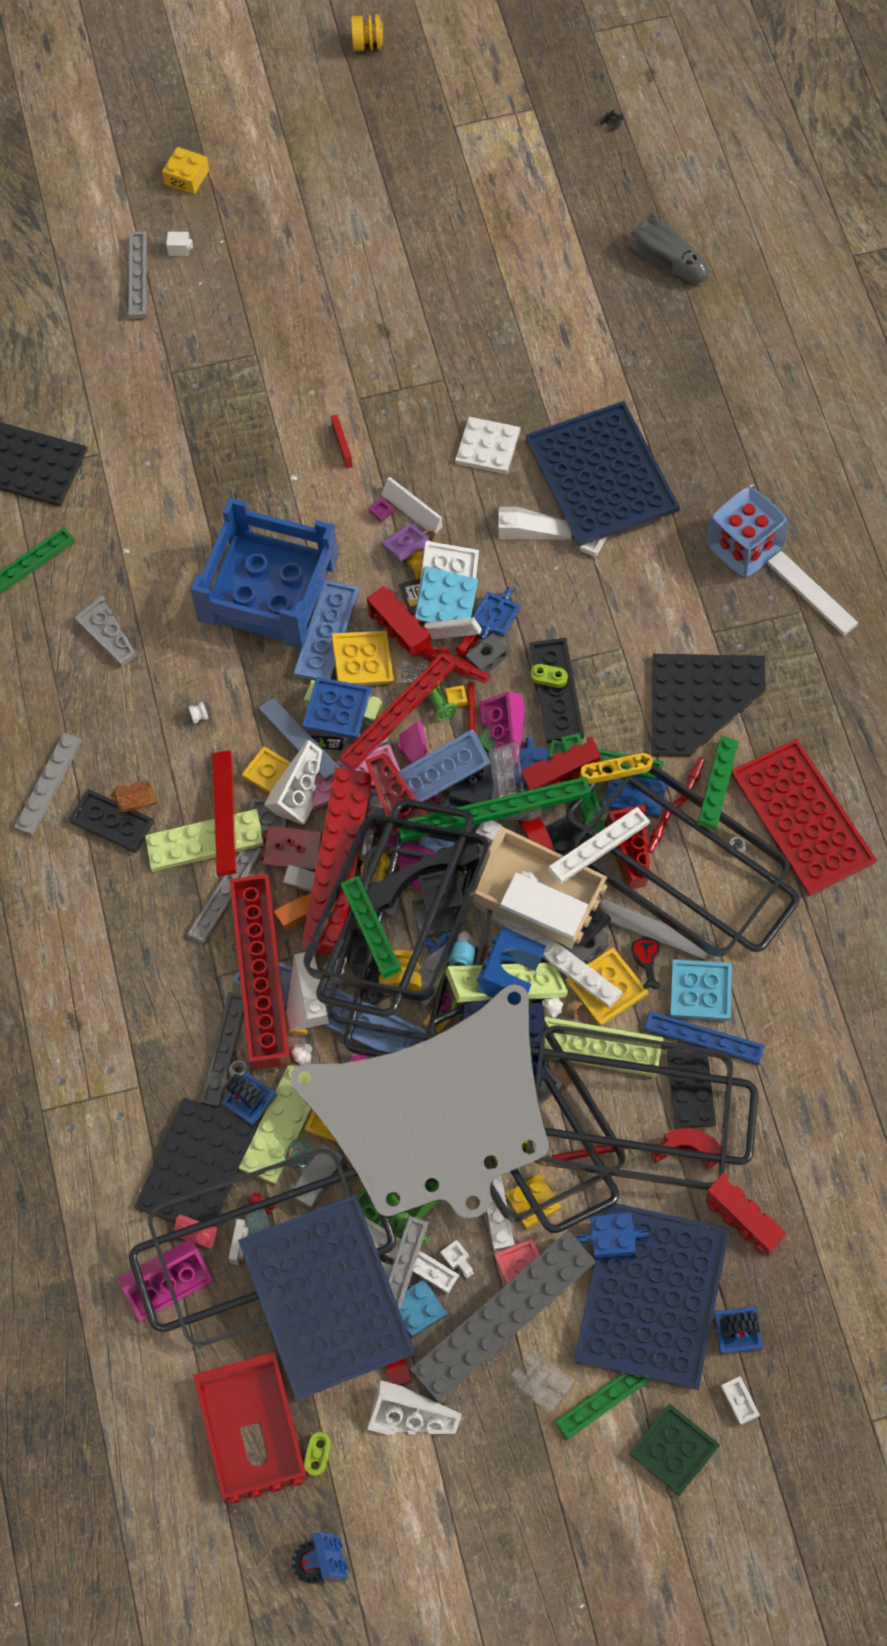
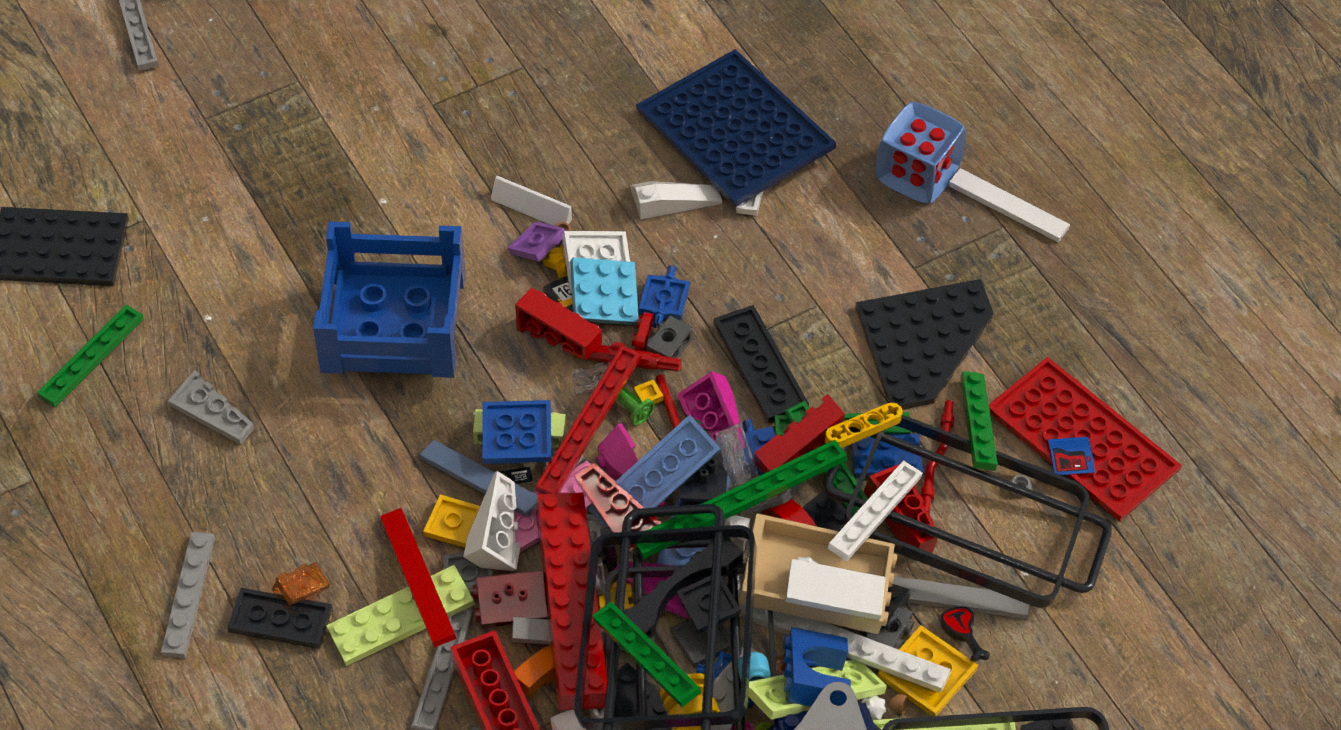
camera: 20 degrees left, 10 degrees down
(198, 712) = (349, 474): white wheel -> none
(330, 616) = (475, 355): medium blue plate -> none
(341, 441) = (428, 151): red tile -> none
(362, 658) = (527, 373): yellow plate -> none
(381, 510) = (497, 214): magenta plate -> none
(453, 628) = (625, 318): white tile -> none
(488, 445) = (596, 124): white plate -> none
(548, 676) = (748, 348): lime plate -> none
(701, 990) = (1036, 650): medium azure plate -> none
(703, 1037) = (1021, 699): blue tile -> none
(786, 830) = (1071, 455): none -> sticker

